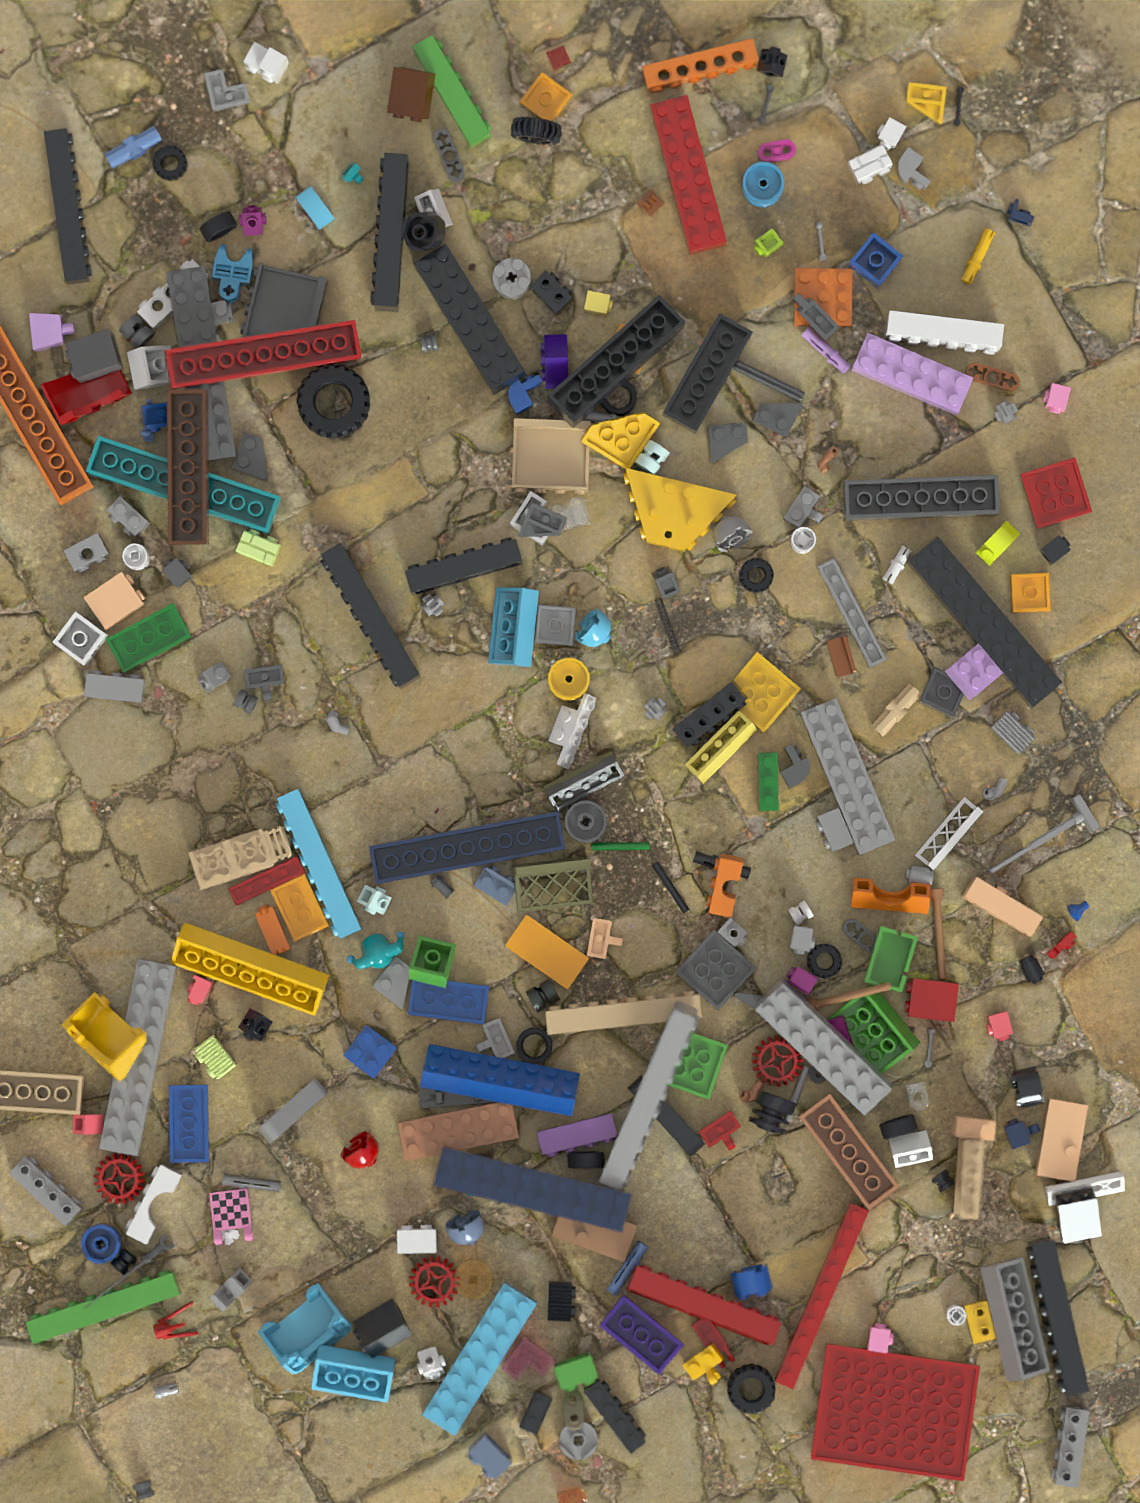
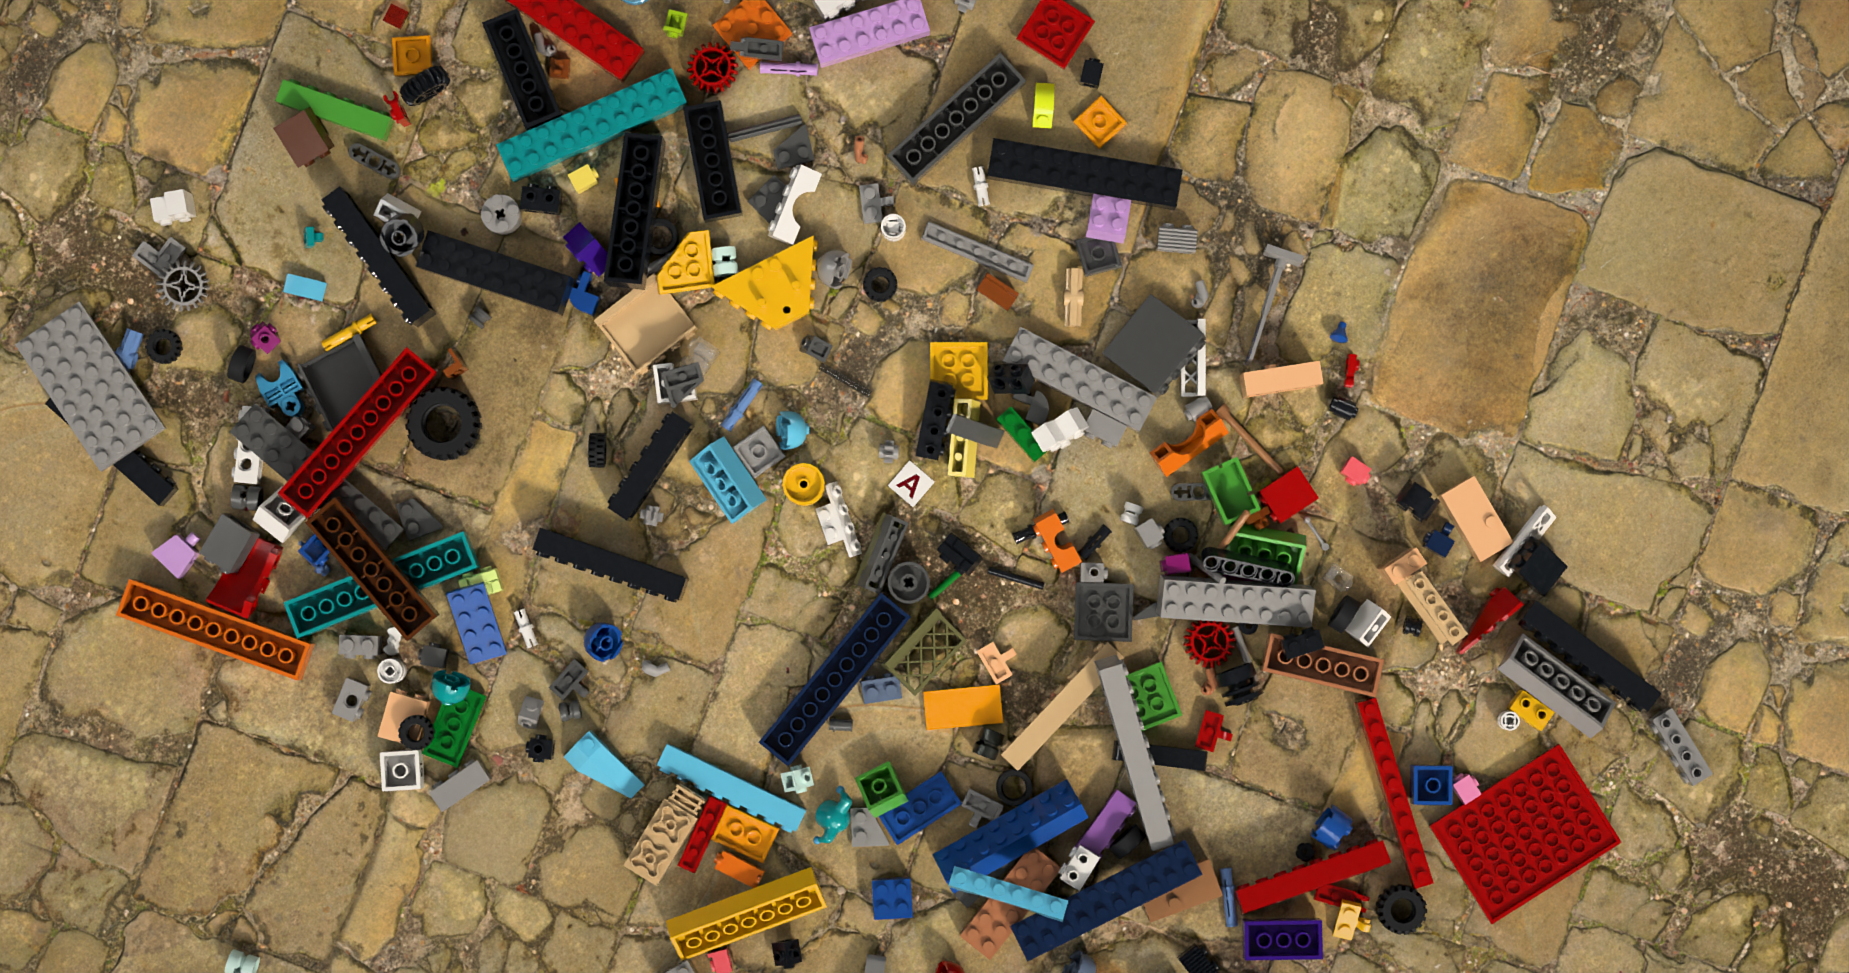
camera: 40 degrees left, 0 degrees up
(89, 147) = (90, 386): none -> light grey plate
(116, 607) = (428, 732): none -> black tyre
(155, 535) = (393, 642): none -> white piece
(170, 607) = (450, 687): none -> teal cylinder
(205, 714) = (547, 745): none -> black brick
(212, 140) = (181, 301): none -> light grey gear
(231, 574) = (476, 623): none -> plate
(233, 758) = (600, 763): none -> medium azure wedge
(264, 610) = (526, 628): none -> white pin
(315, 670) = (603, 641): none -> blue cylinder
(320, 270) = (347, 333): none -> yellow pin
(378, 367) = (456, 368): none -> dark orange panel
(433, 520) = (597, 450): none -> black tyre
(477, 1141) = (1009, 893): none -> medium azure arch
(498, 134) = (397, 112): none -> red plate
(532, 1147) = (1078, 867): none -> white brick
(572, 578) = (736, 412): none -> medium blue pin
(621, 181) = (522, 69): none -> black brick
(638, 268) = (592, 125): none -> teal brick
(642, 833) = (959, 554): none -> black brick
(651, 176) = (542, 47): none -> light grey arm
(651, 747) = (911, 483): none -> white sticker
(715, 1288) = (1310, 852): none -> black plate
(720, 469) = (784, 225): none -> white arch
(734, 748) = (975, 430): none -> dark grey slope
(767, 910) = (1085, 552): none -> black pin
(777, 300) = (701, 55): none -> red gear
(795, 731) = (1011, 378): none -> black brick
(799, 803) = (1060, 431): none -> white brick
(822, 1003) = (1198, 563): none -> light grey bar
(848, 1122) = (1301, 644): none -> black brick
(853, 1018) = (1241, 560): none -> black beam
(854, 1313) = (1431, 784): none -> blue brick
(895, 999) = (1259, 519): none -> dark orange tile
(927, 799) = (1155, 345): none -> dark grey panel
(1019, 1222) = (1496, 608): none -> red wedge

